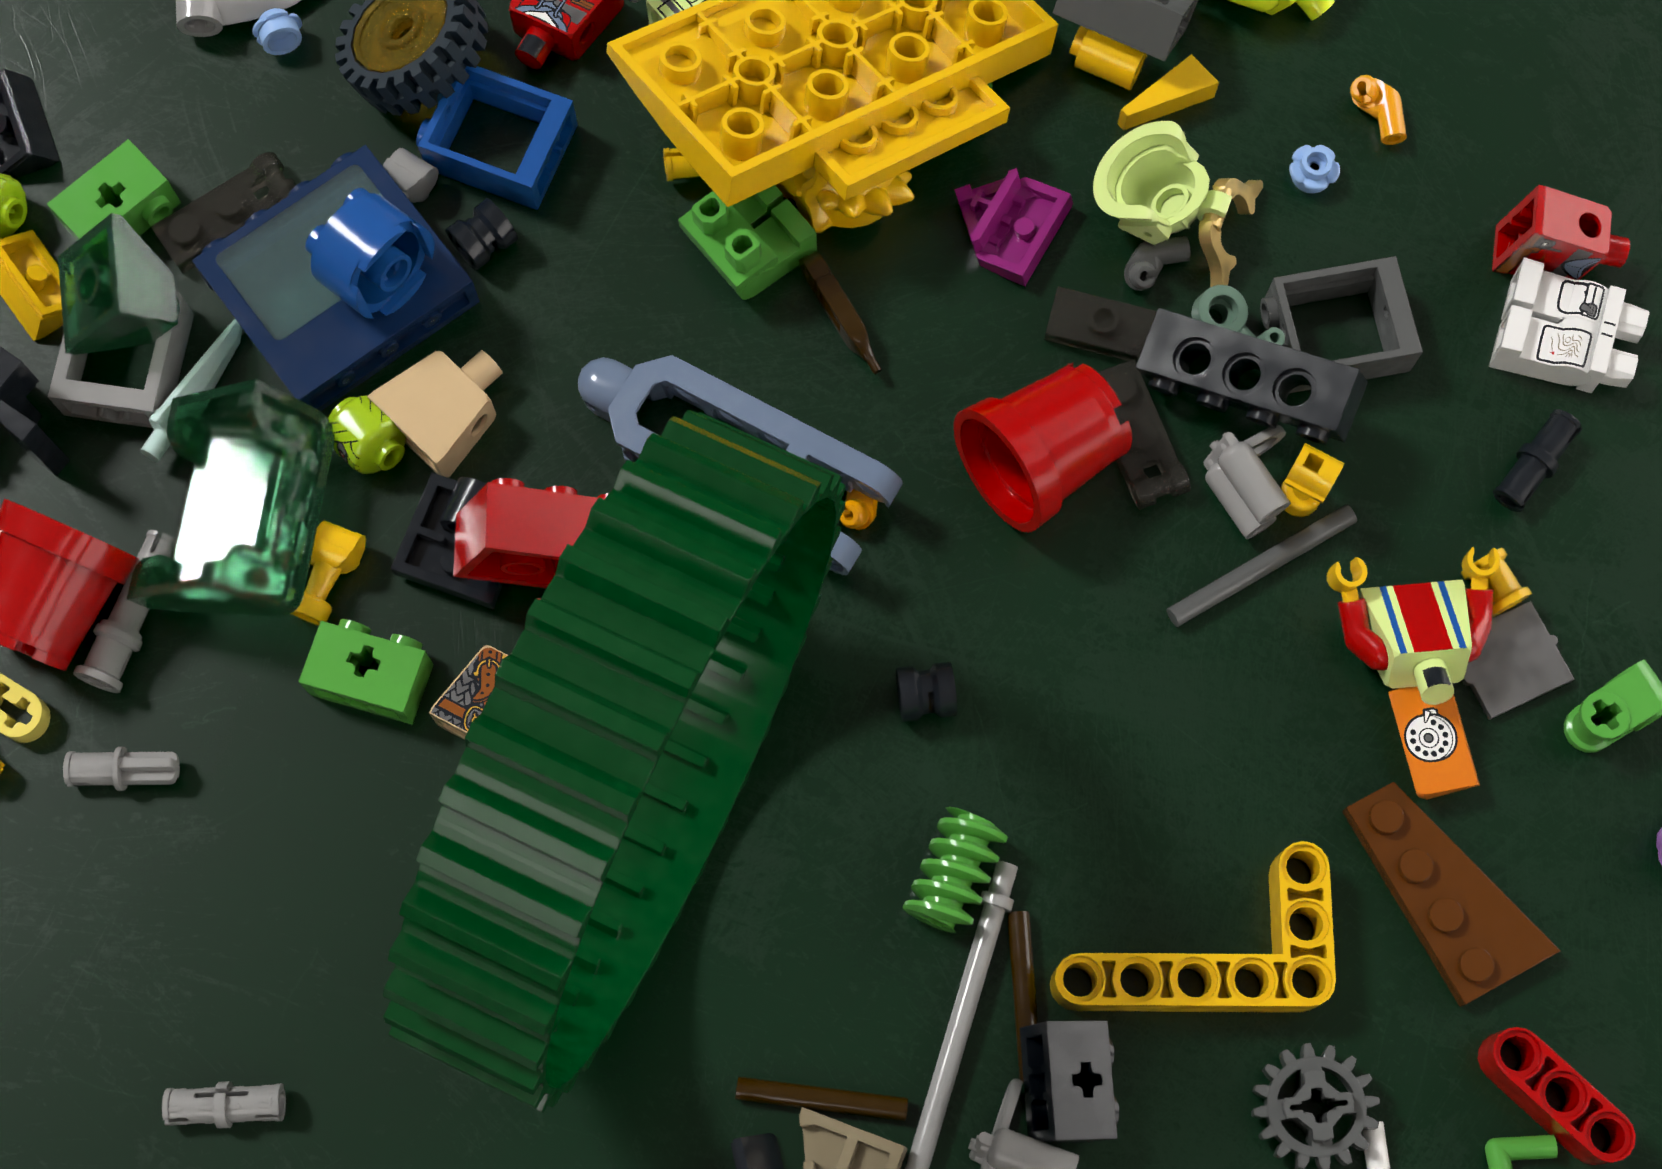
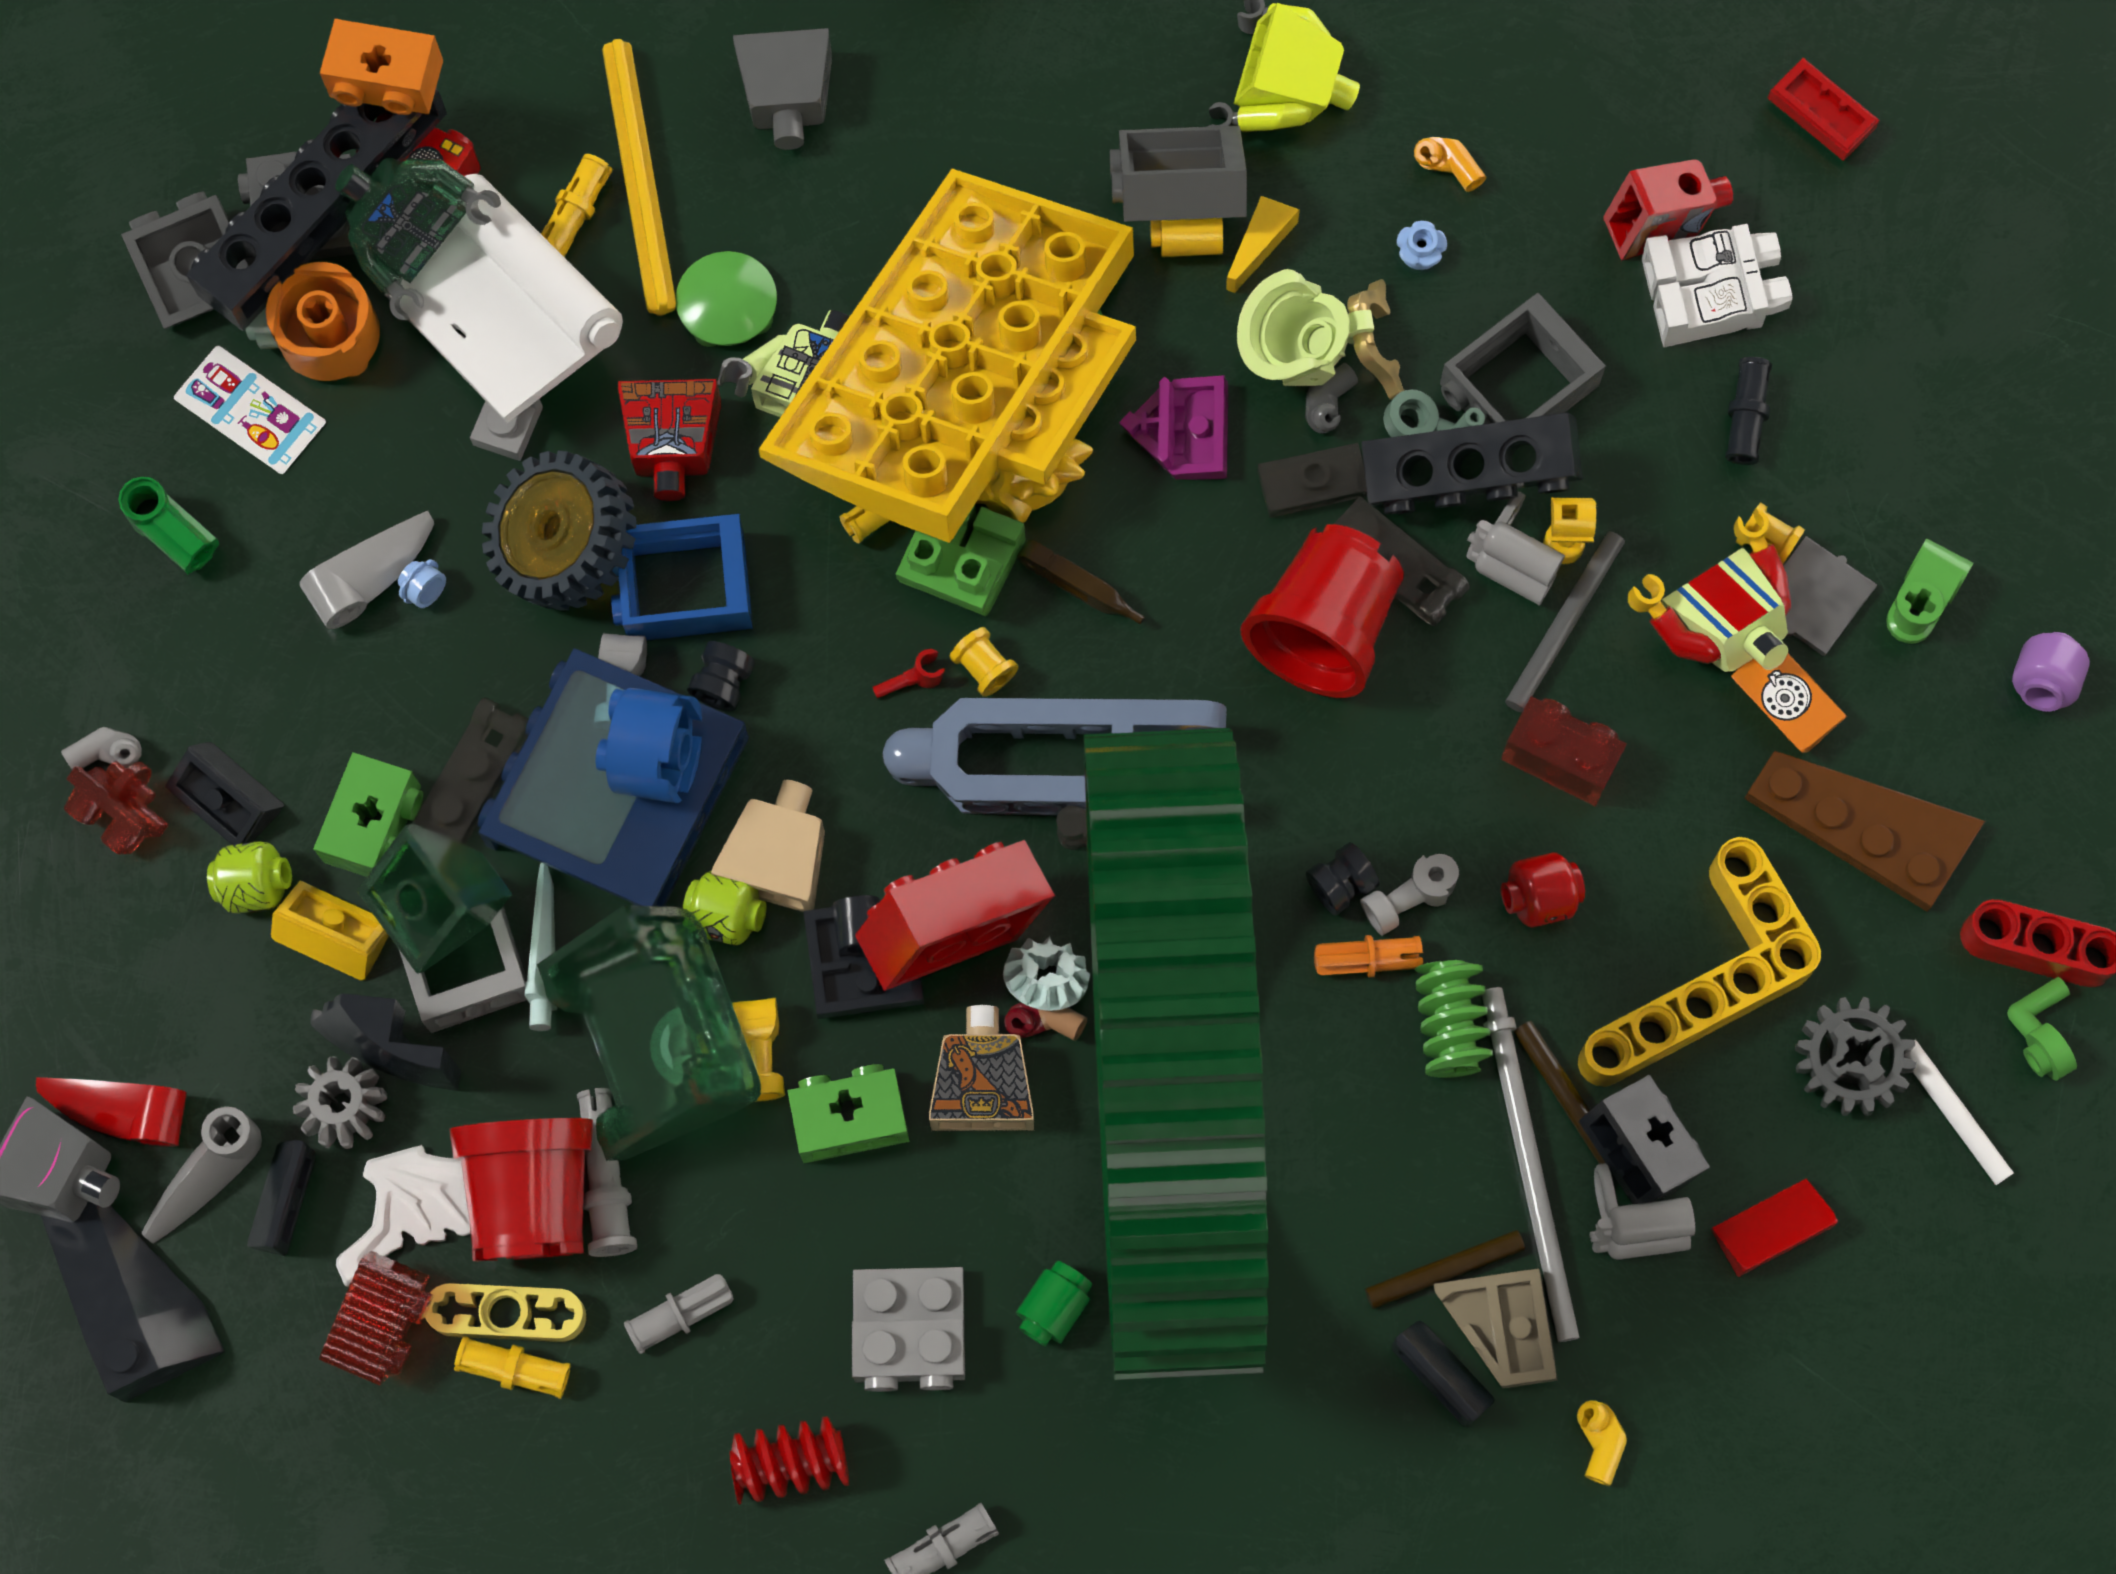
camera: 25 degrees left, 0 degrees up
(132, 954) = (788, 1460): none -> red piece
(310, 890) = (908, 1327): none -> light grey plate
(650, 319) = (913, 675): none -> red hand
(716, 336) = (984, 661): none -> yellow bush
(911, 774) = (1368, 956): none -> orange axle
(1006, 736) = (1430, 882): none -> light grey leg
(1105, 797) = (1543, 889): none -> red head
(1195, 679) = (1564, 749): none -> clear red brick

